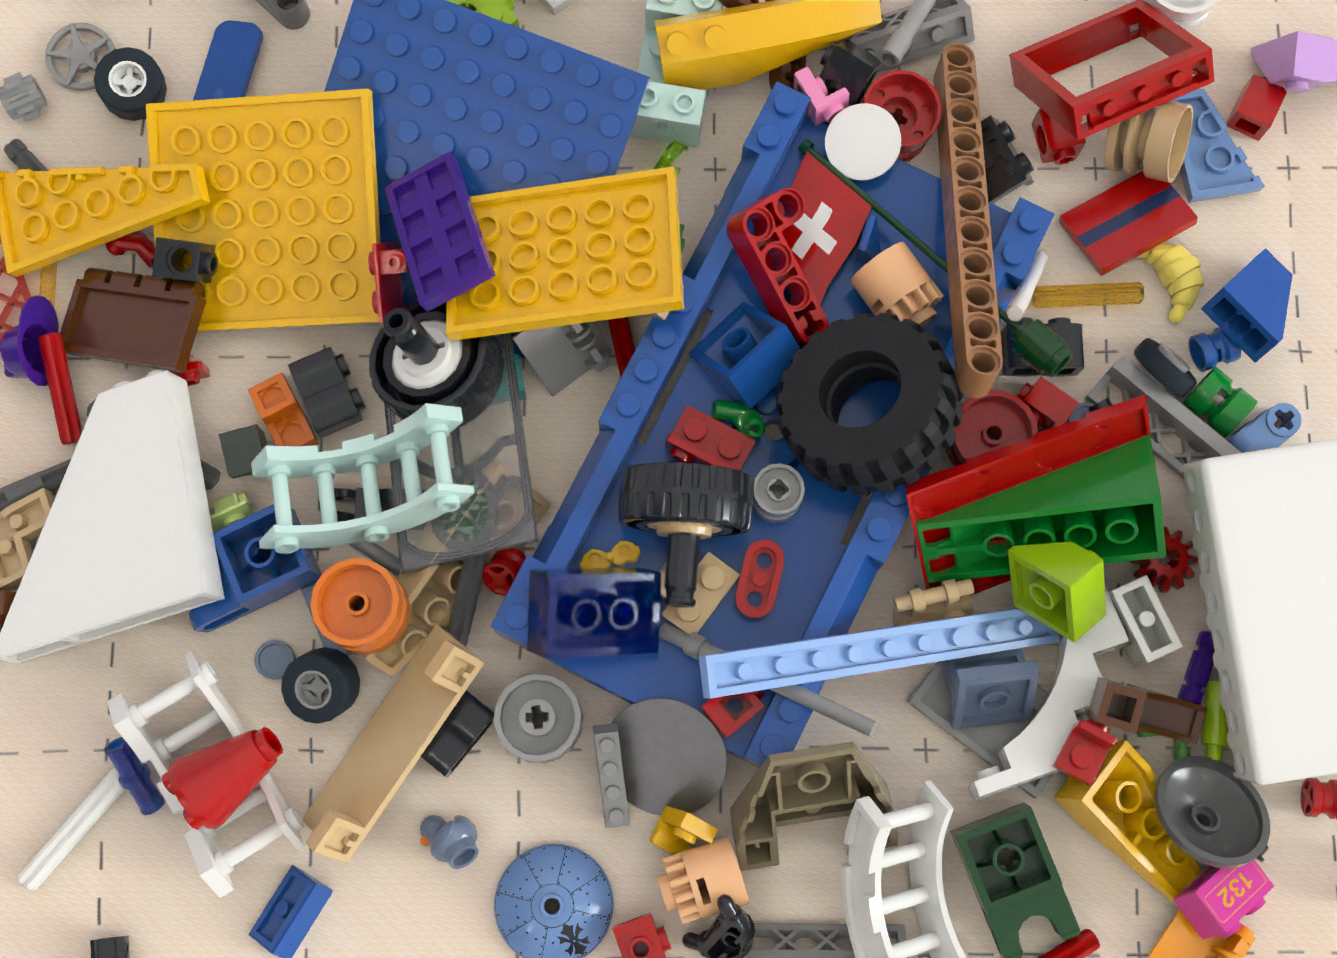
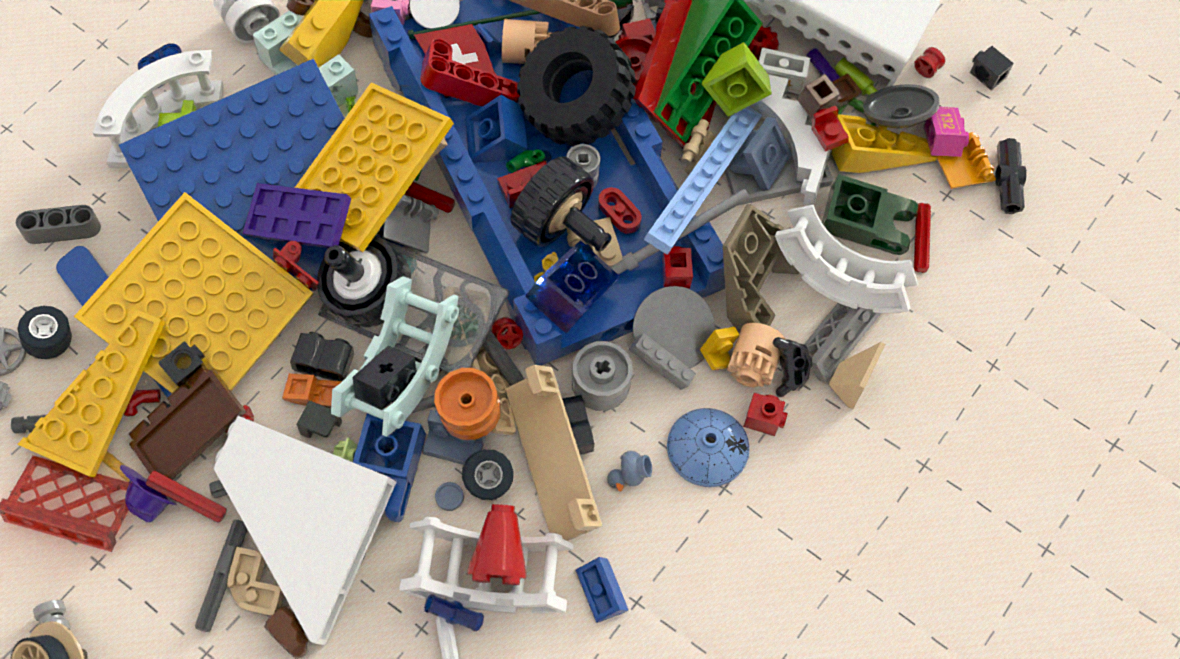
camera: 55 degrees left, 15 degrees down
(307, 480) = (384, 377): none -> black brick

